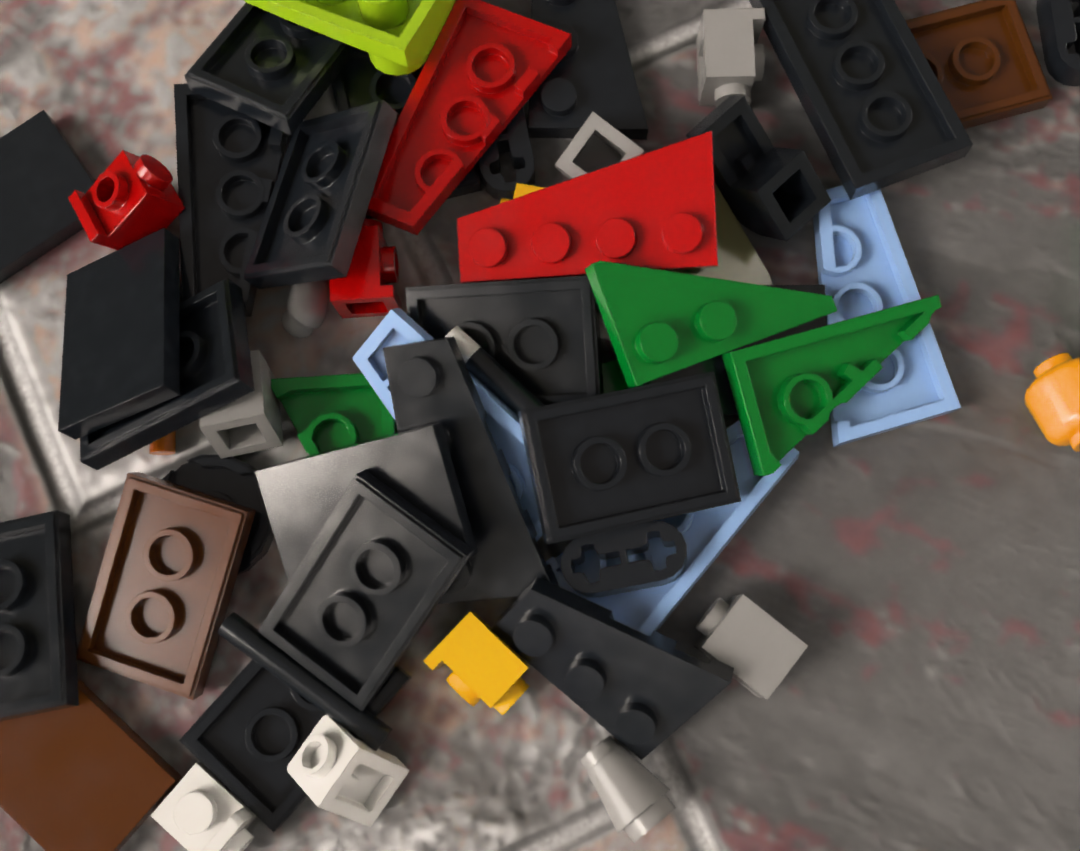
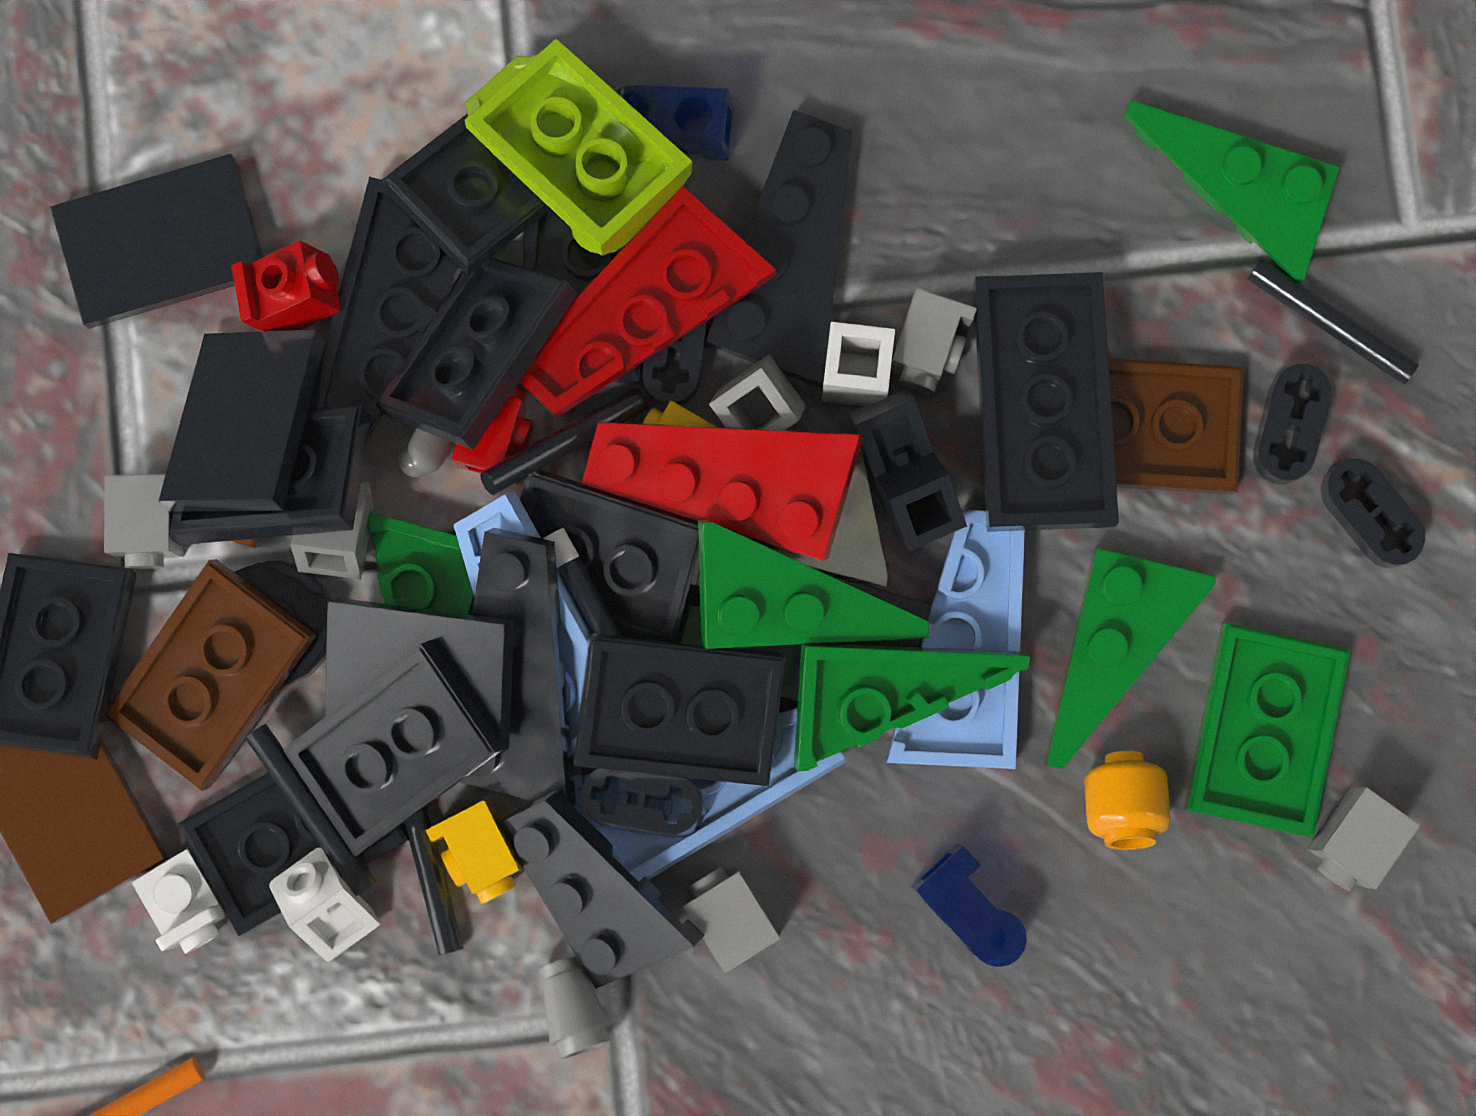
camera: 15 degrees right, 5 degrees up
(50, 464) = (137, 522): none -> light grey brick
(421, 259) = (561, 442): none -> black bar
(448, 712) = (433, 884): none -> black bar
(675, 92) = (857, 364): none -> white brick
(970, 557) = (984, 929): none -> clear blue leg
(997, 256) = (1122, 625): none -> green wing

